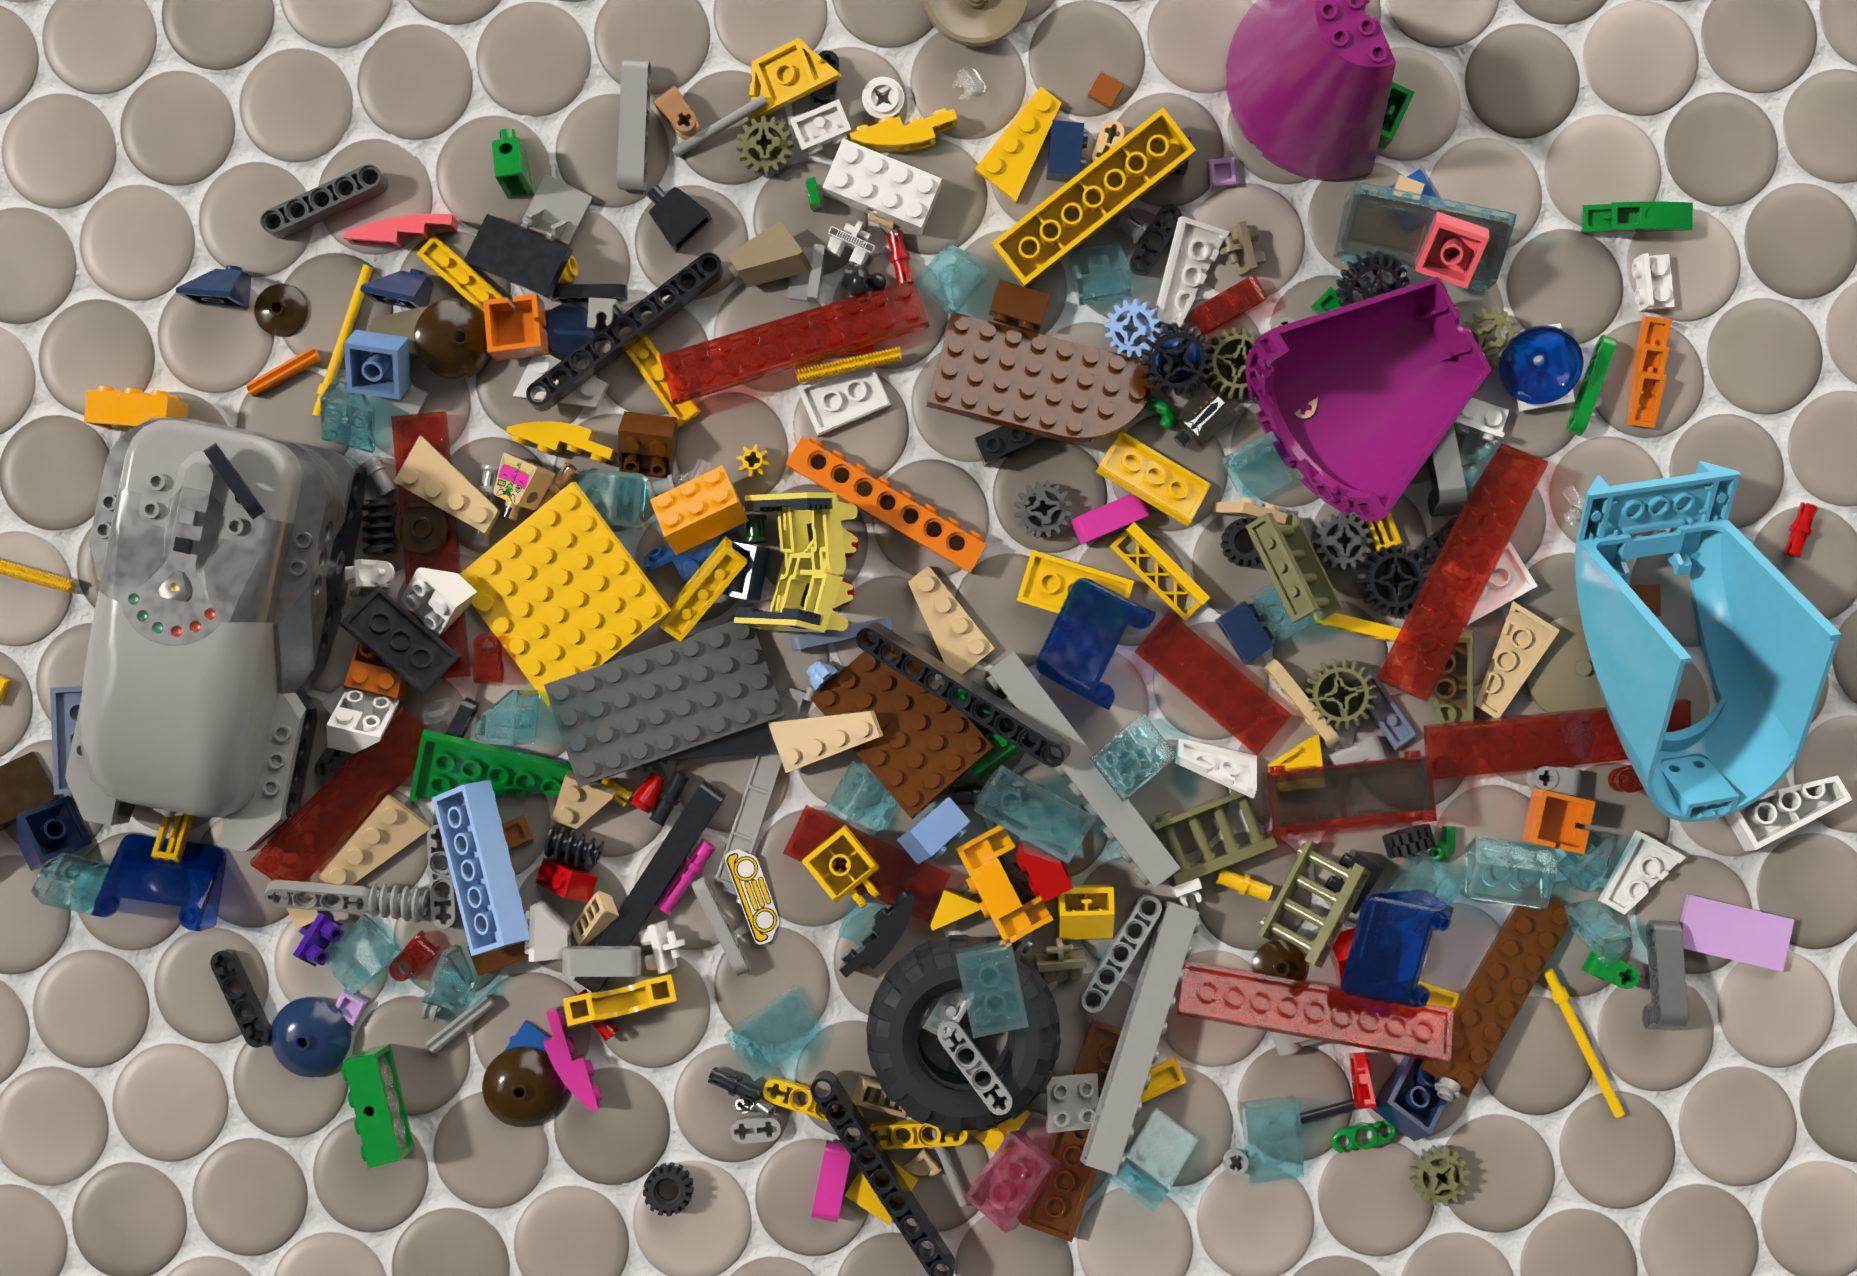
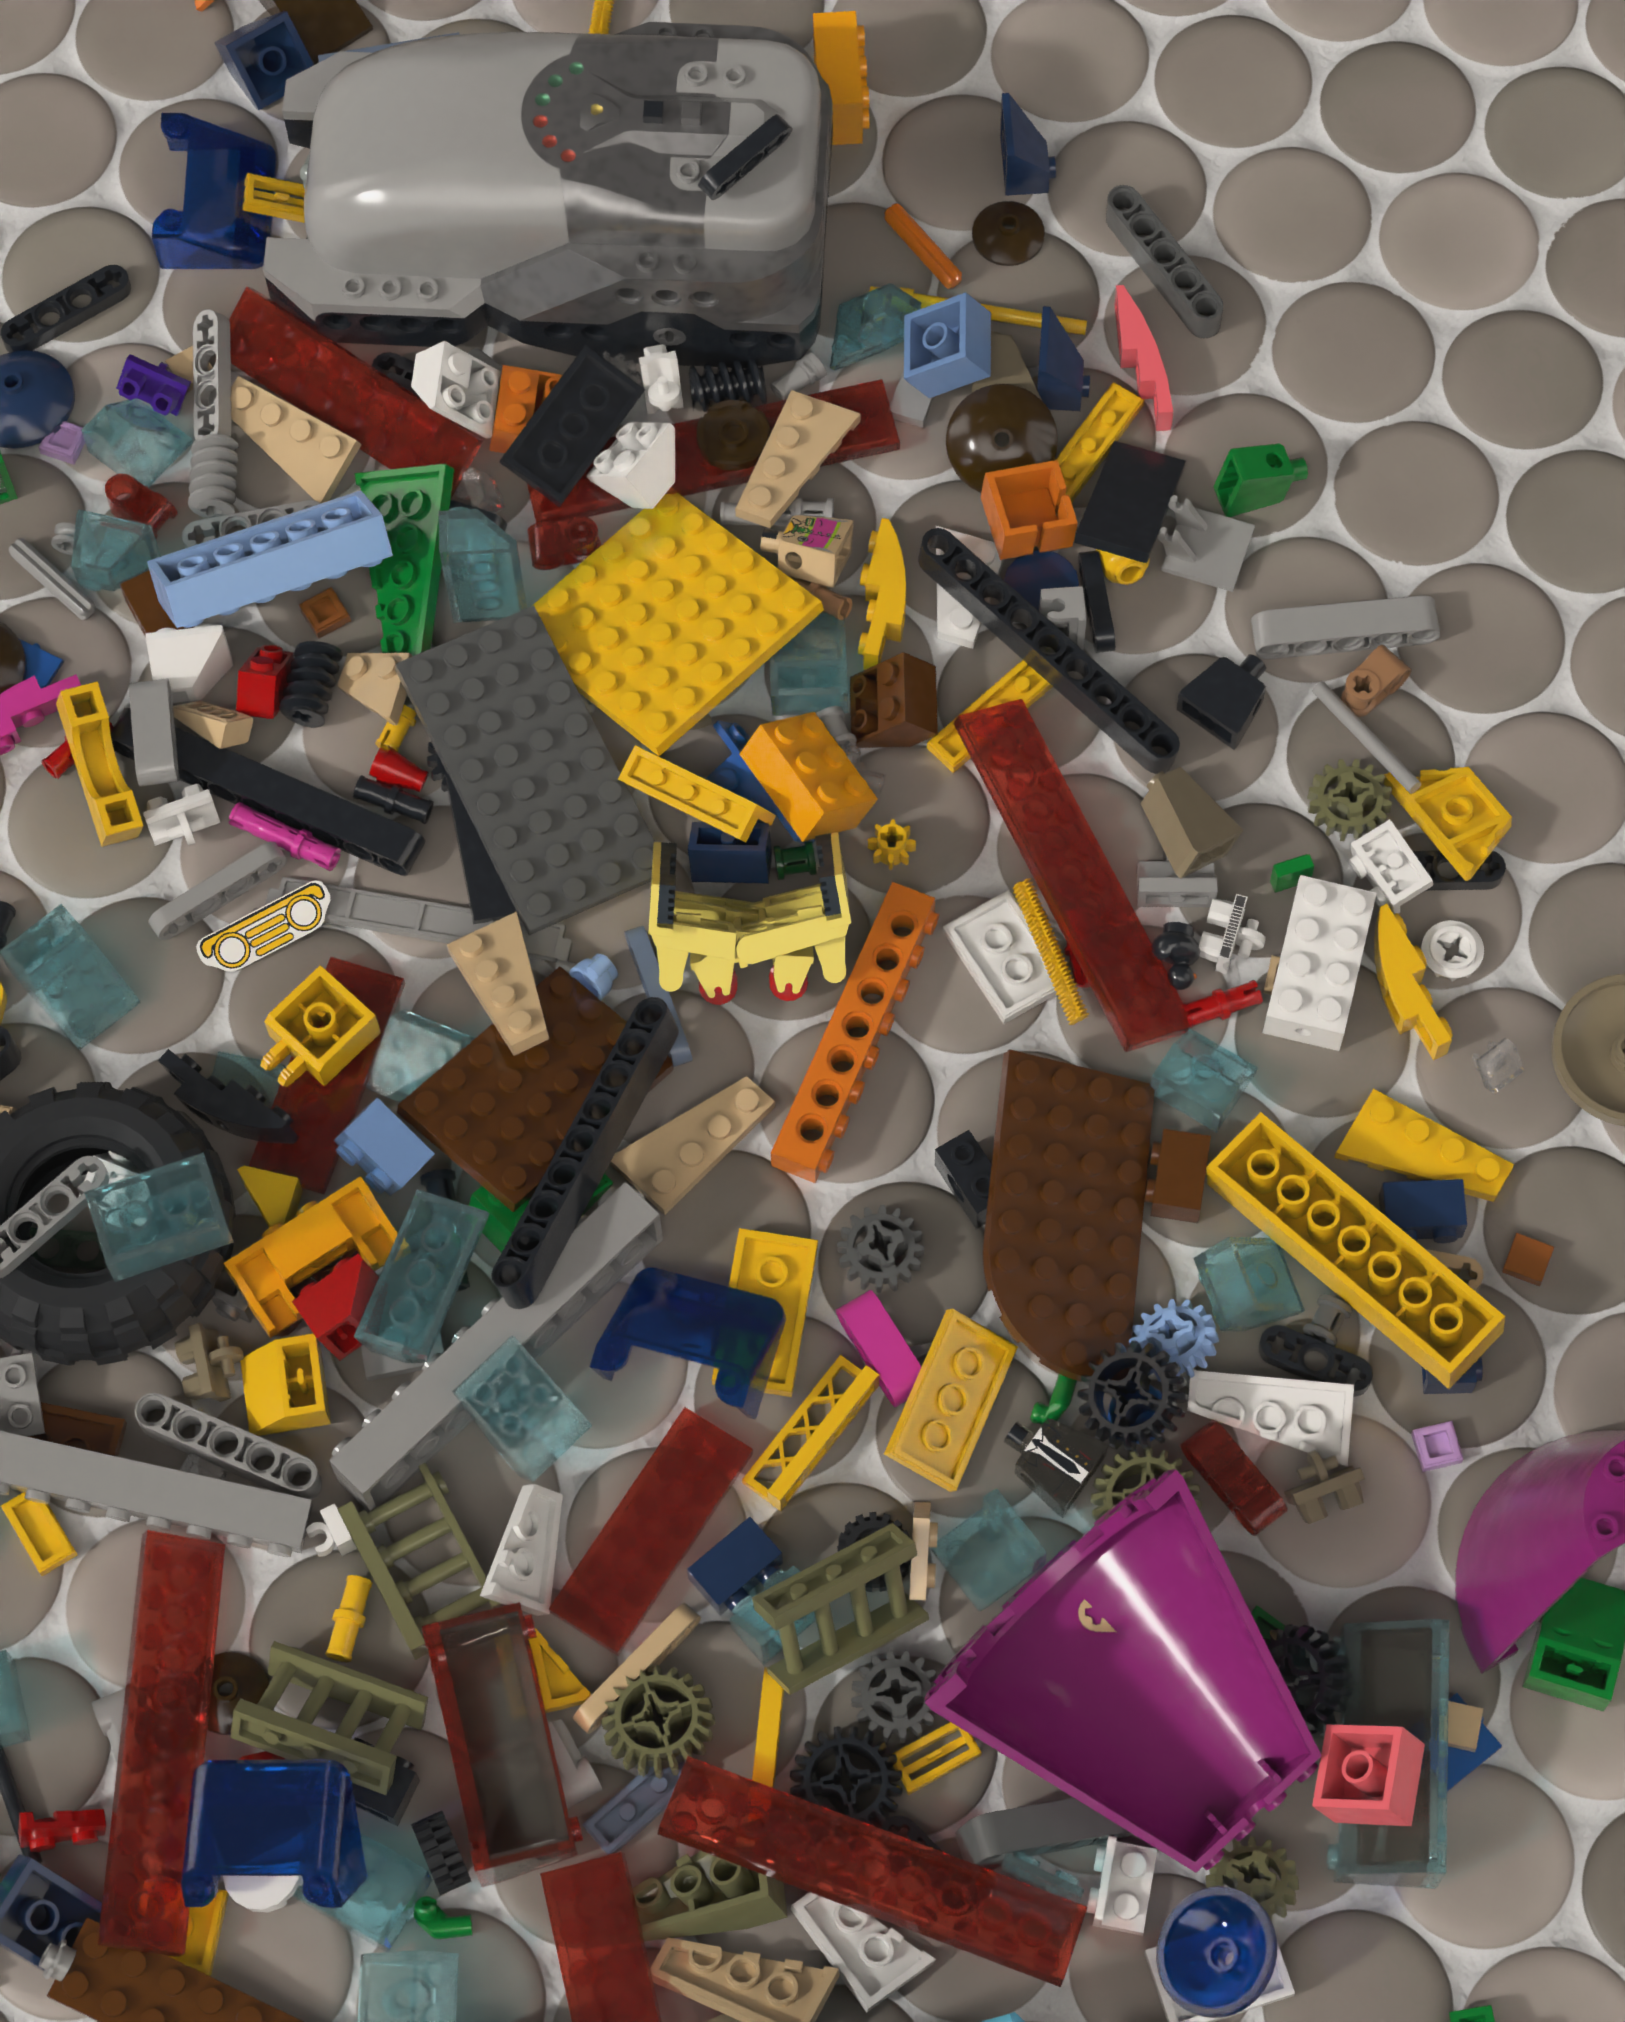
camera: 80 degrees right, 20 degrees down
(70, 883) = (203, 86): clear light blue slope -> none

